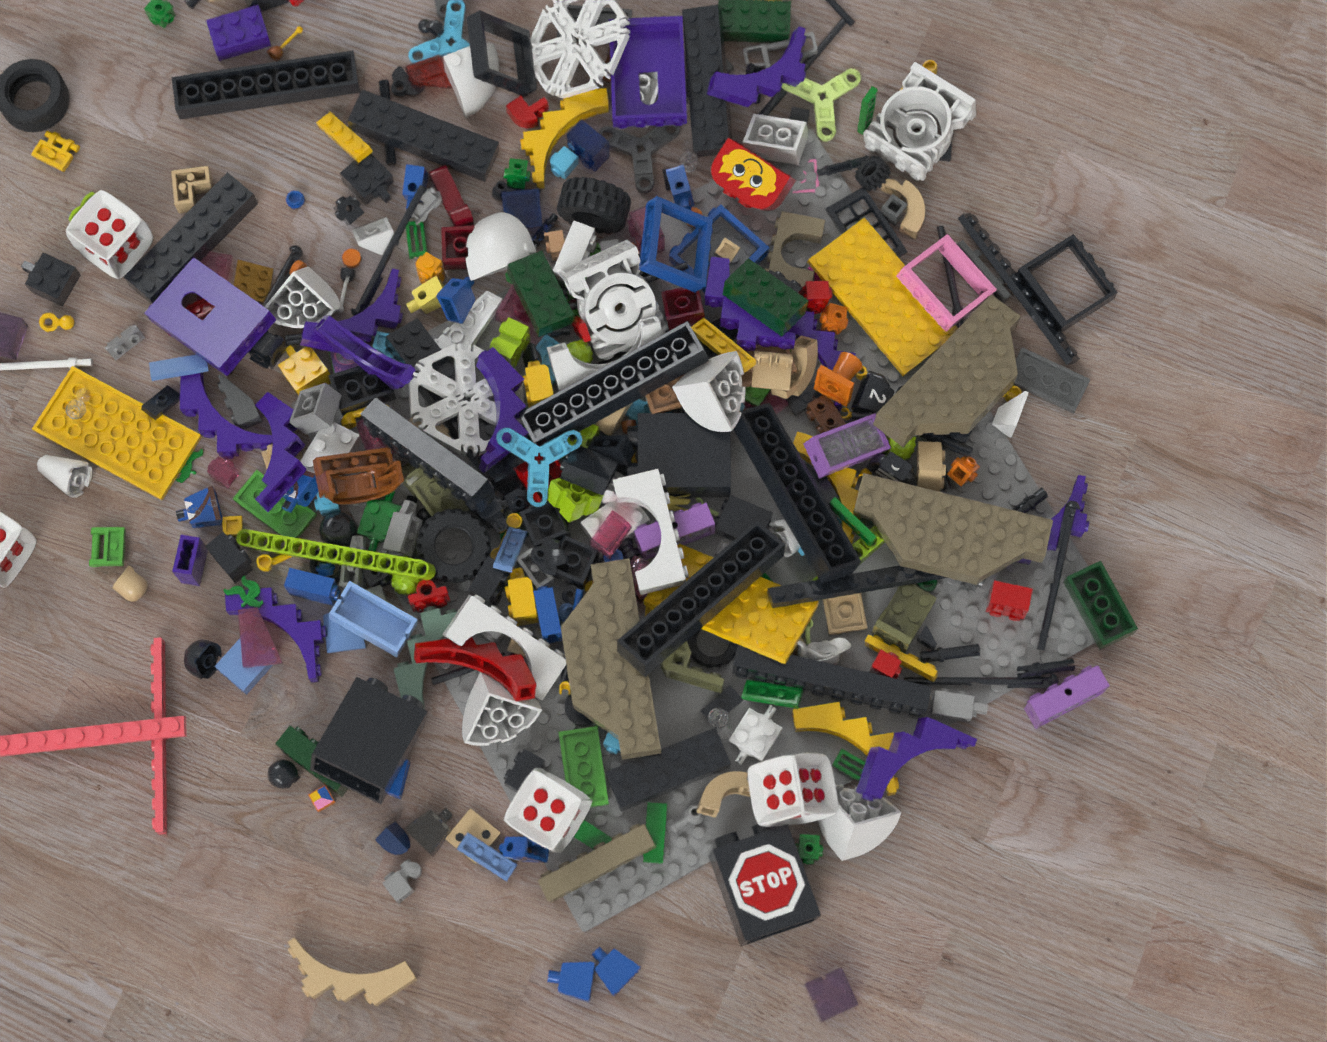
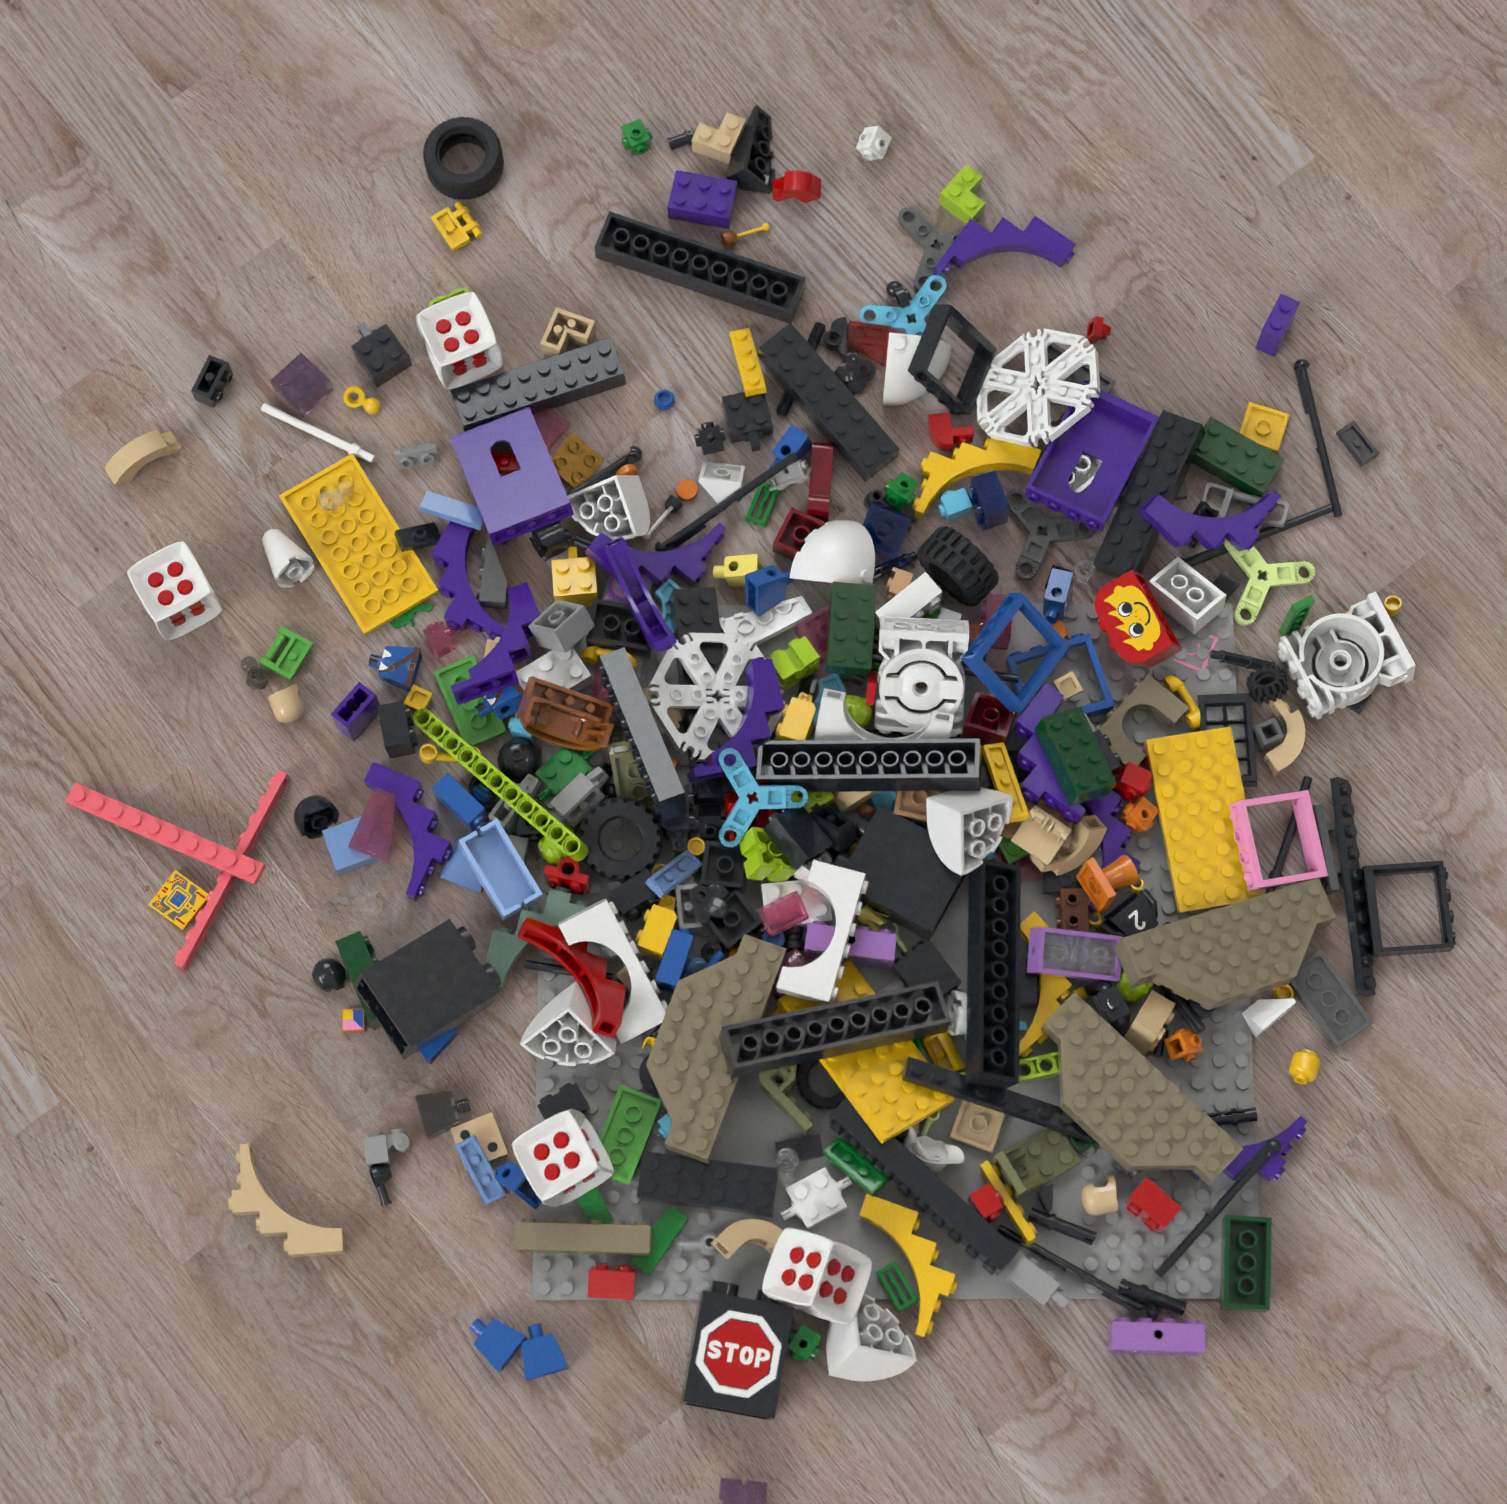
camera: 30 degrees right, 0 degrees up
(94, 578) = (256, 677): none -> clear smoke plate
(130, 782) = (179, 900): none -> yellow tile
(254, 592) = (399, 778): green piece -> none
(394, 839) = (400, 1101): dark blue brick -> none
(410, 905) = (380, 1175): none -> black bar
(428, 104) = (851, 372): none -> black plate
(429, 267) = (756, 542): light orange brick -> none
(638, 884) = (612, 1282): none -> red brick
(787, 572) = (944, 1052): none -> yellow slope
(832, 226) = (1174, 684): none -> yellow bar
(853, 522) = (1036, 1036): green tile -> none
(884, 763) = (924, 1302): dark purple arch -> none
(968, 617) = (1100, 1200): none -> tan helmet
(1059, 438) = (1304, 1066): none -> yellow head

